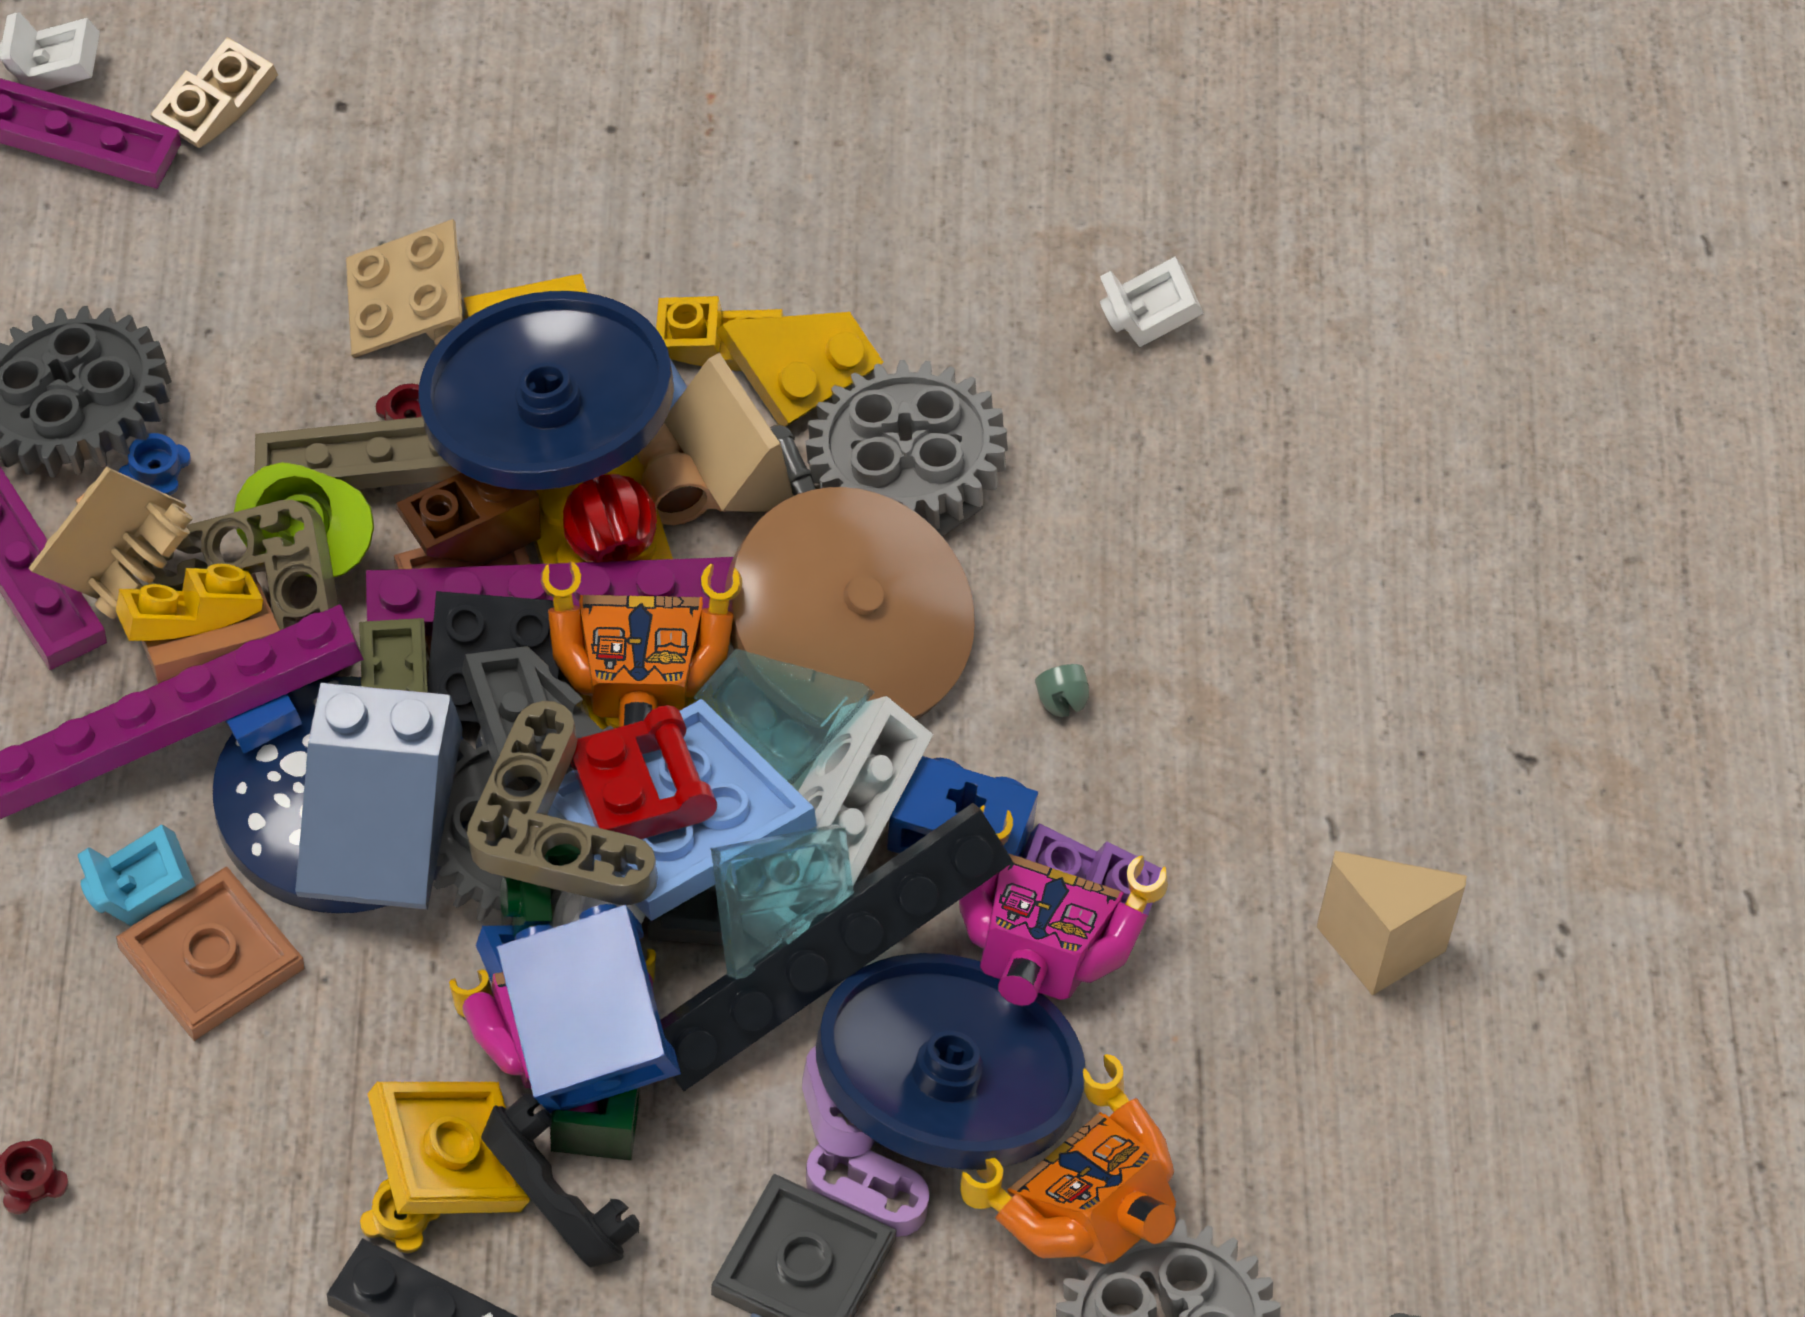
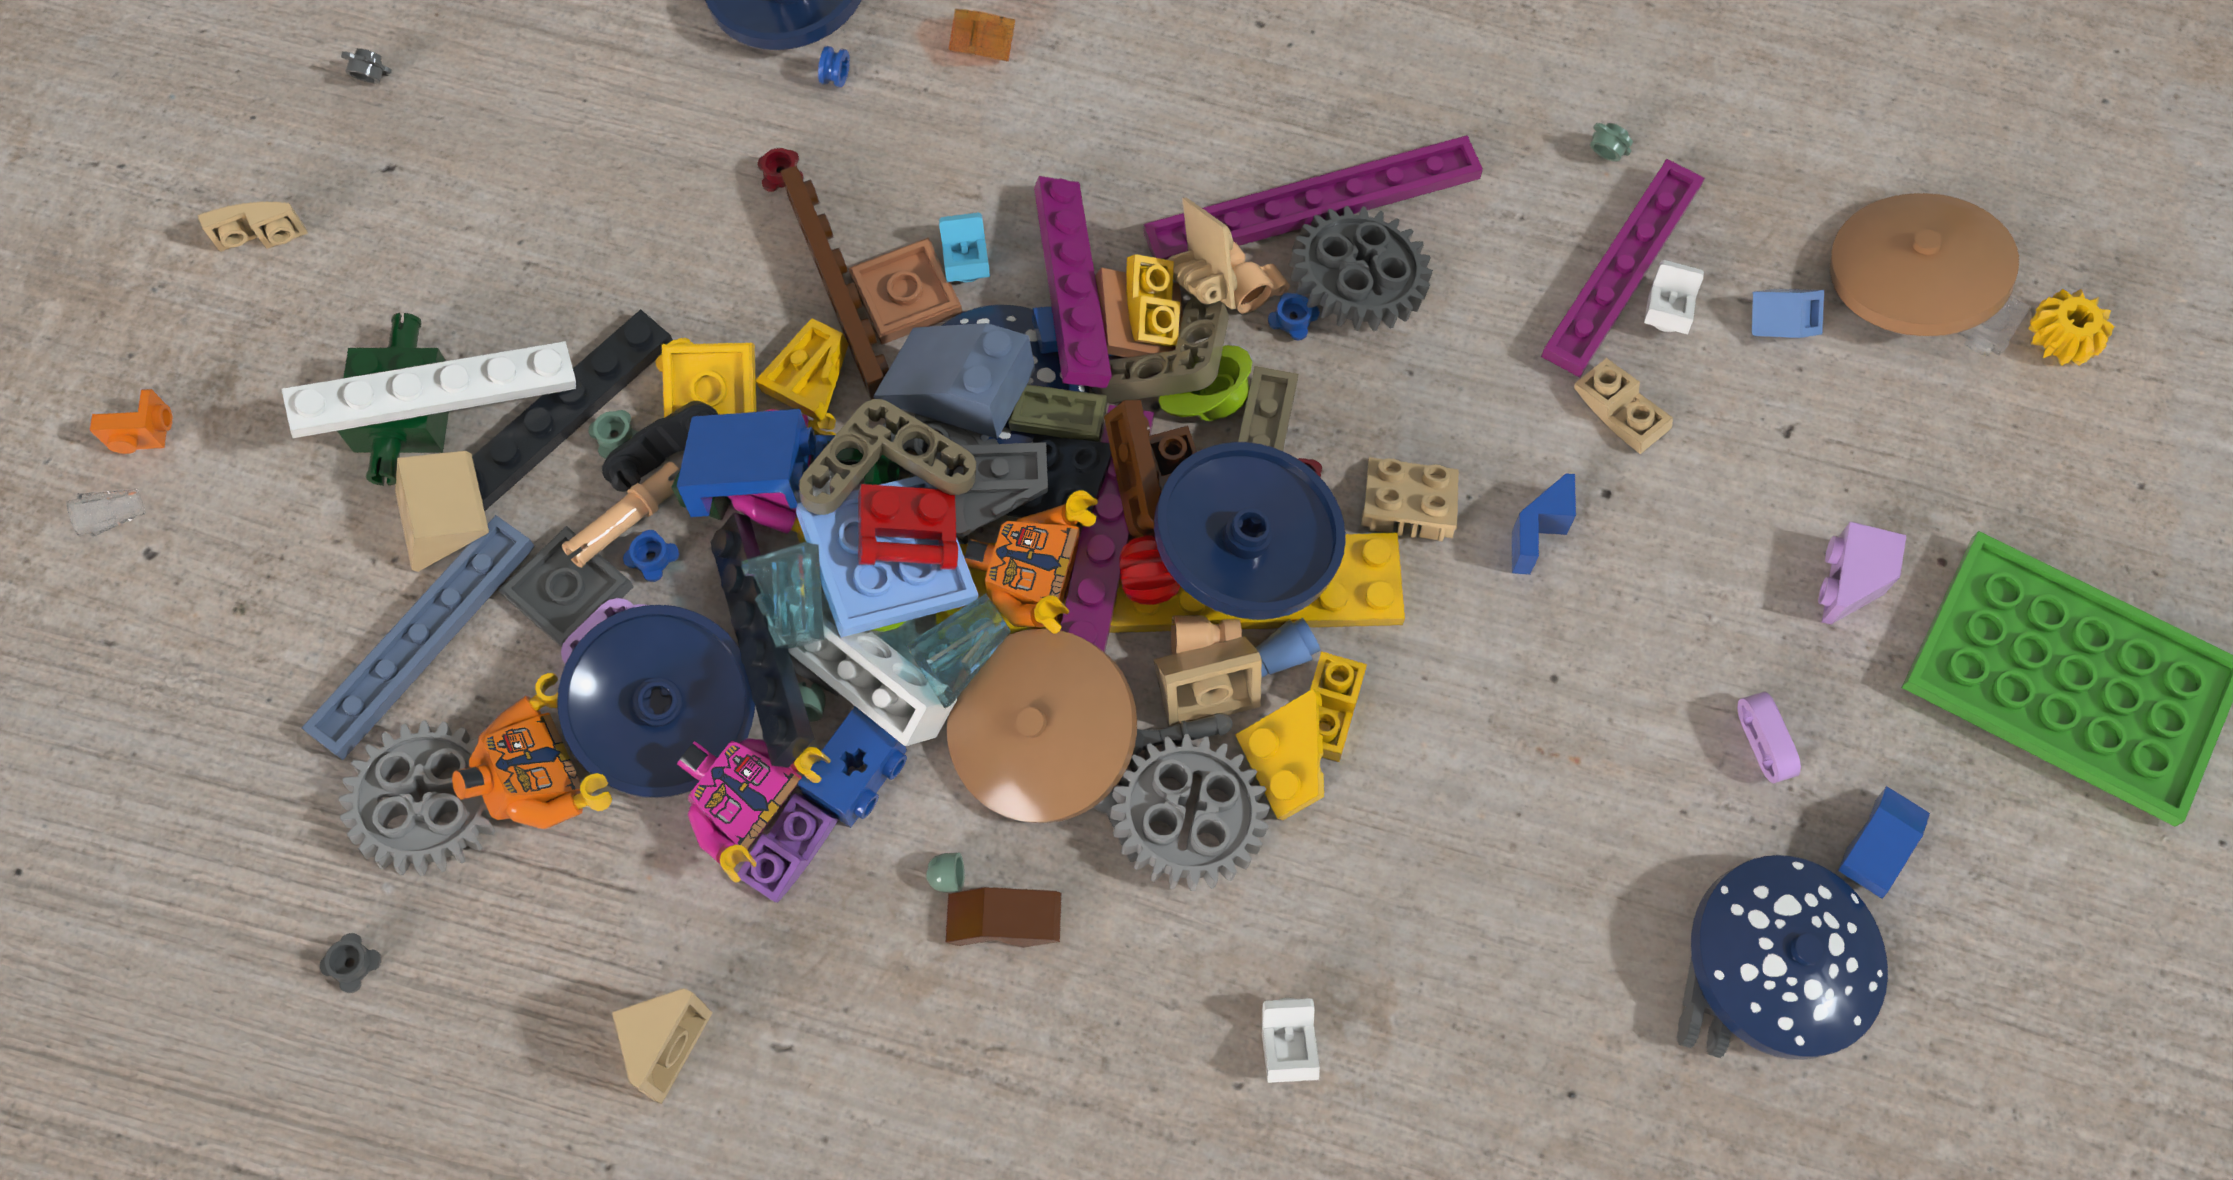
camera: 110 degrees right, 10 degrees up
(209, 1045) = (830, 268): none -> reddish brown plate
(384, 1028) = (806, 369): none -> yellow wing
(426, 165) = (1547, 514): none -> blue slope
(477, 545) = (1134, 465): none -> reddish brown plate
(540, 1252) = (607, 424): none -> sand green plate
(653, 1191) = (639, 502): none -> light nougat pin
(727, 1143) = (647, 543): none -> blue plate
(1104, 610) = (1004, 915): none -> reddish brown slope

